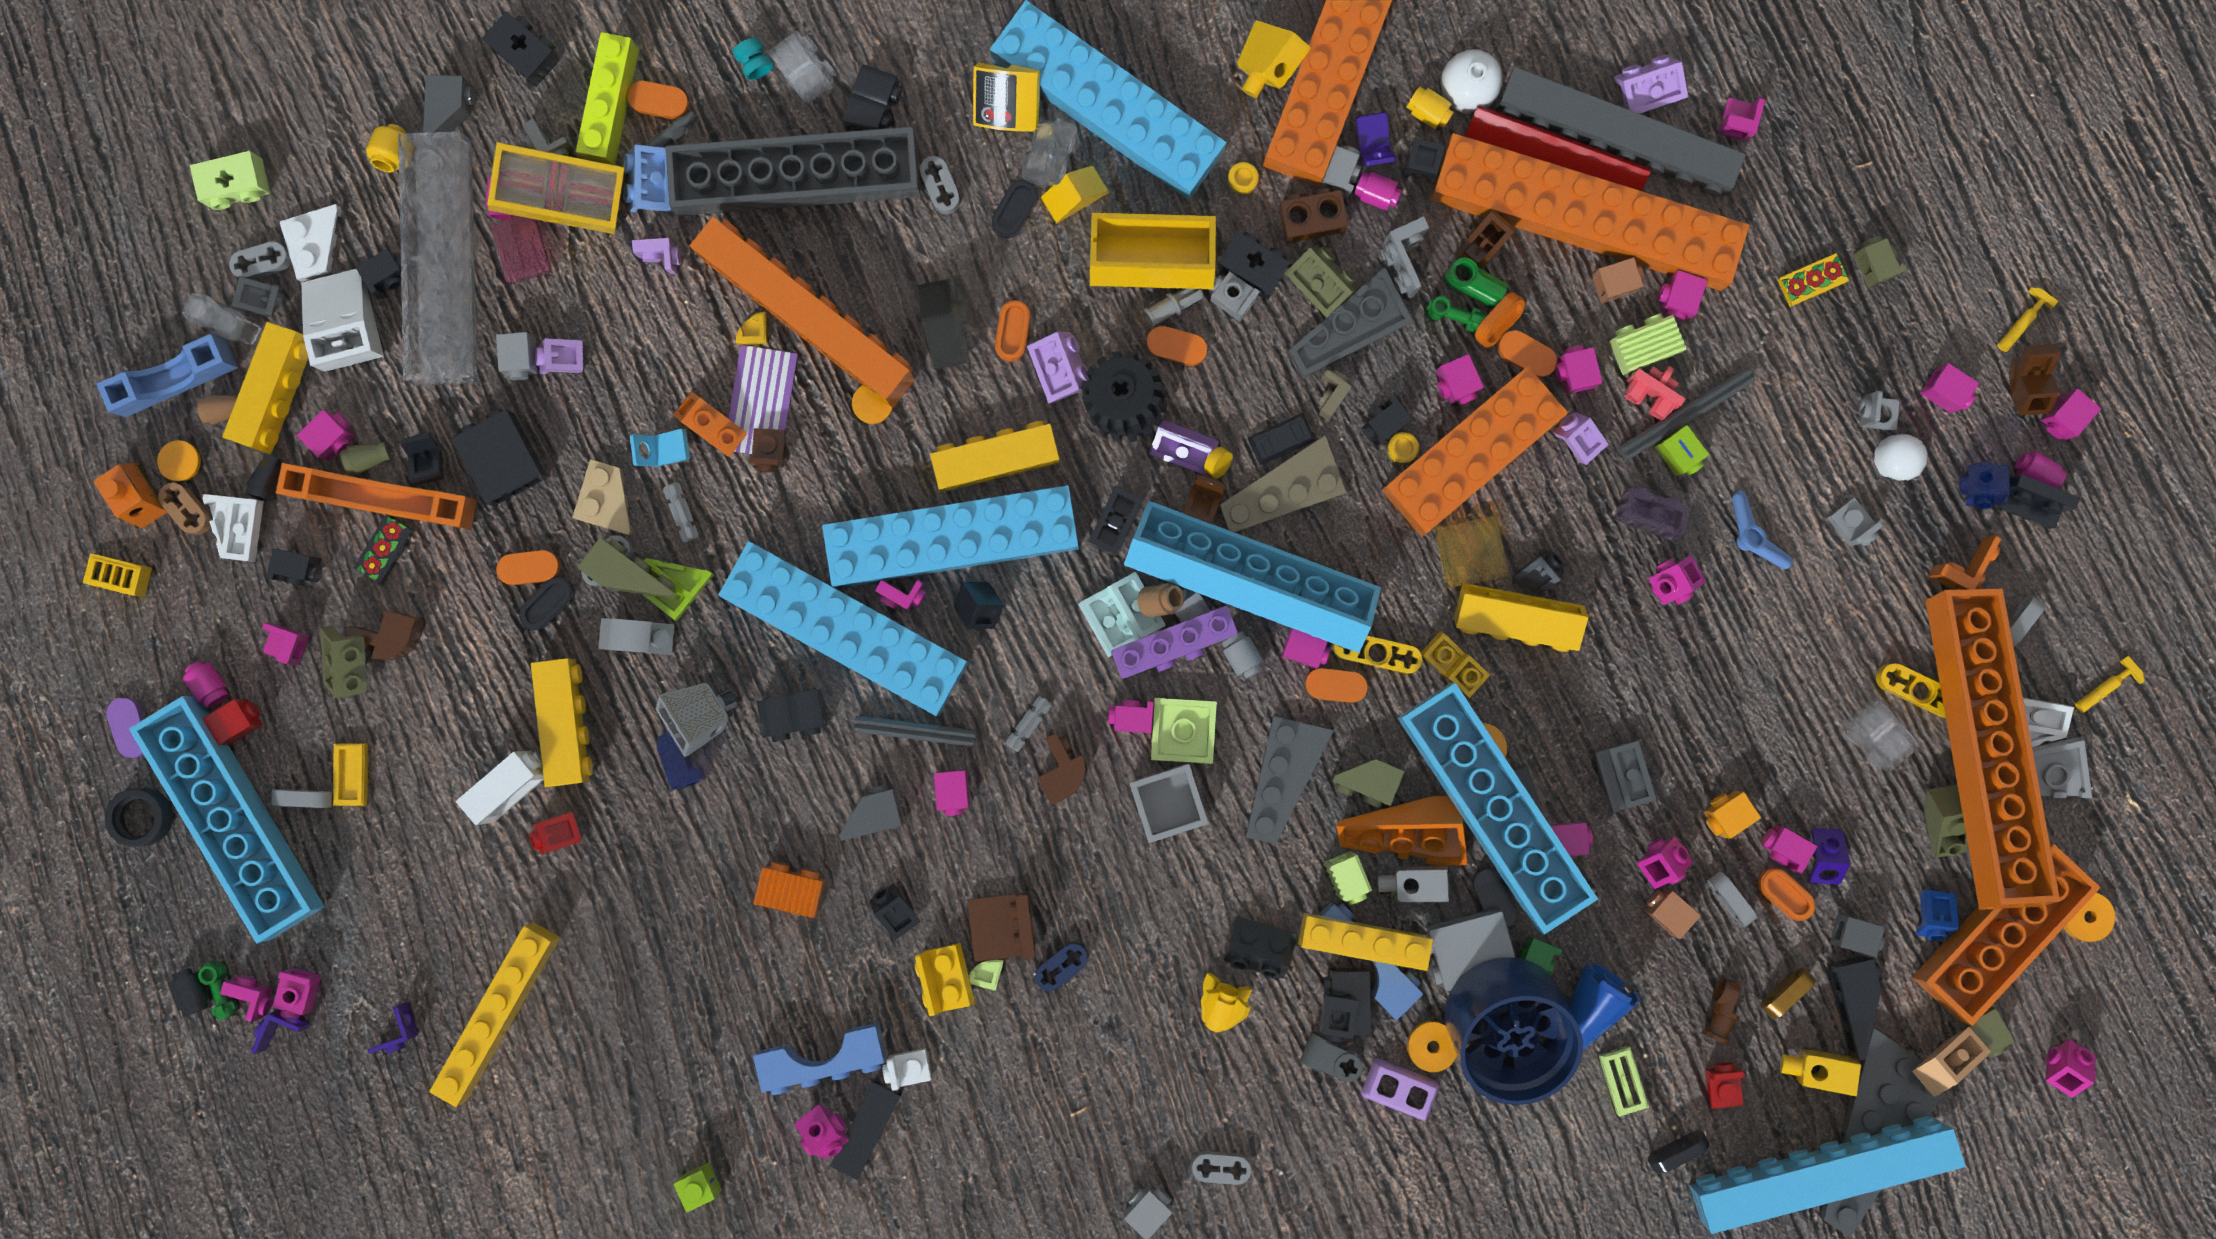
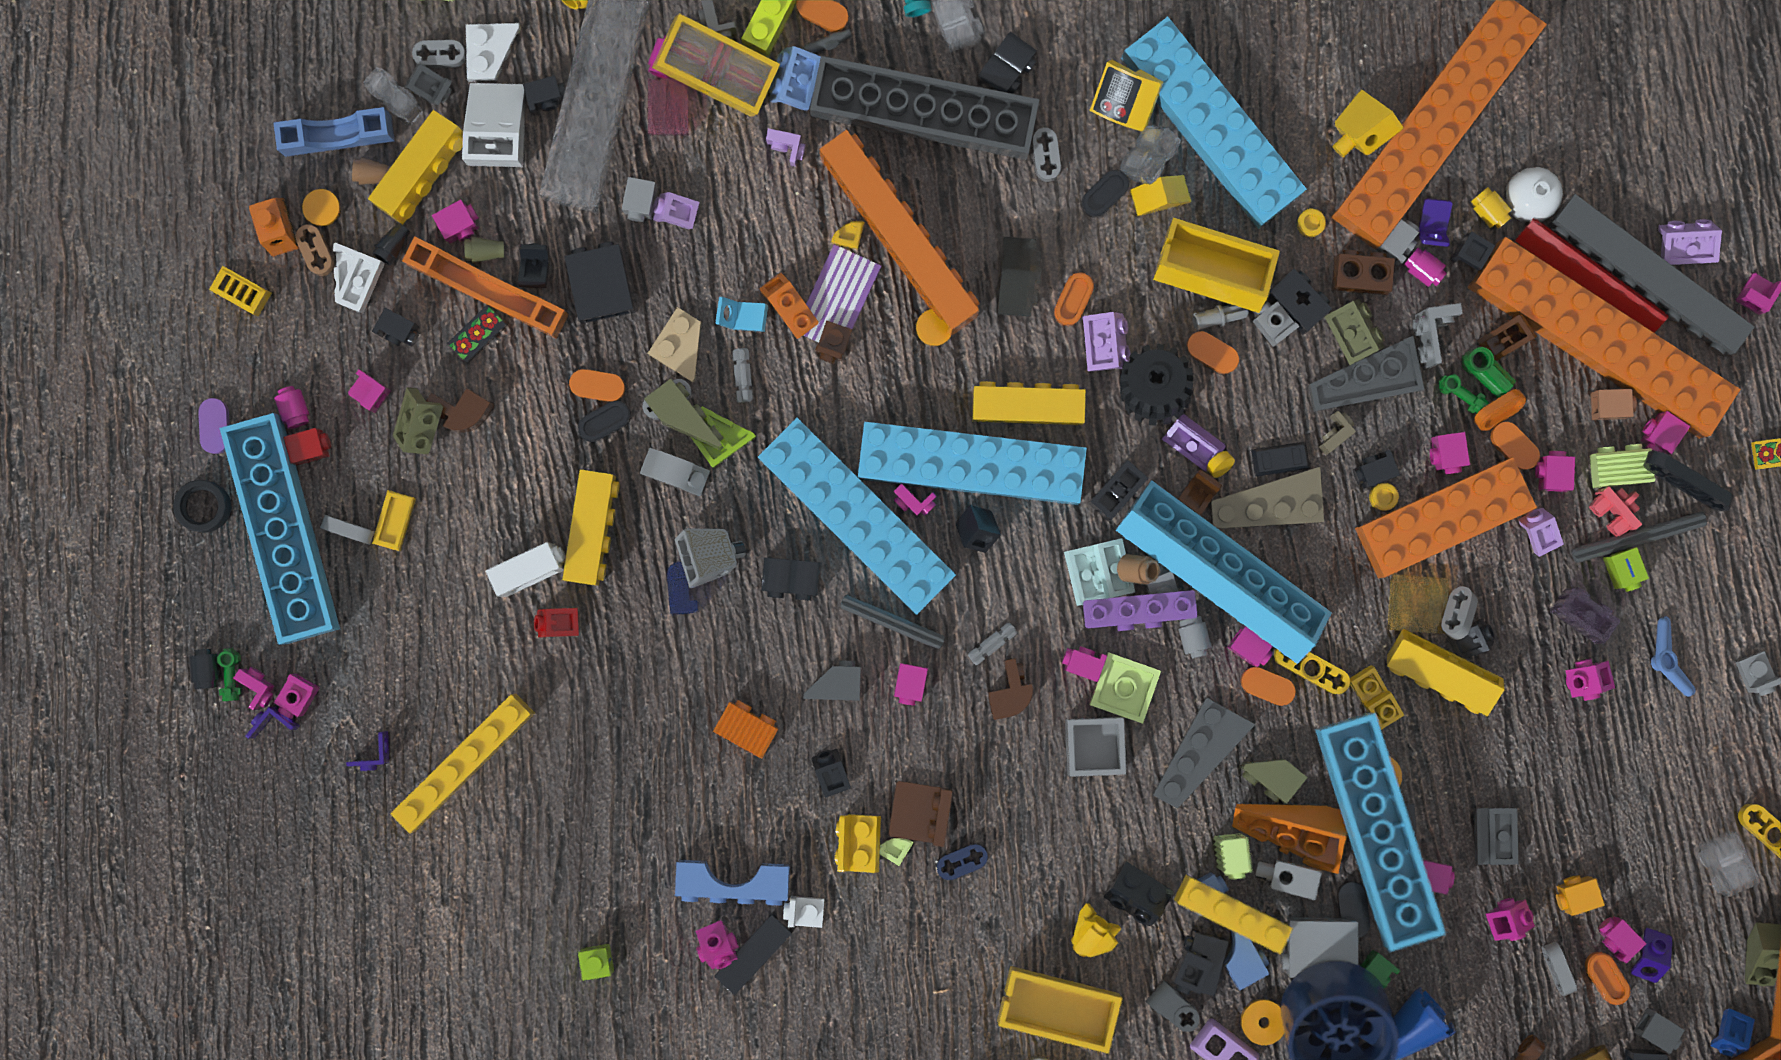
camera: 10 degrees right, 0 degrees up
(1209, 1096) = (1059, 1009): none -> yellow piece
(1520, 548) = (1463, 613): none -> light grey beam
(1671, 912) = (1503, 965): nougat brick -> none
(1721, 338) = (1688, 481): none -> black beam

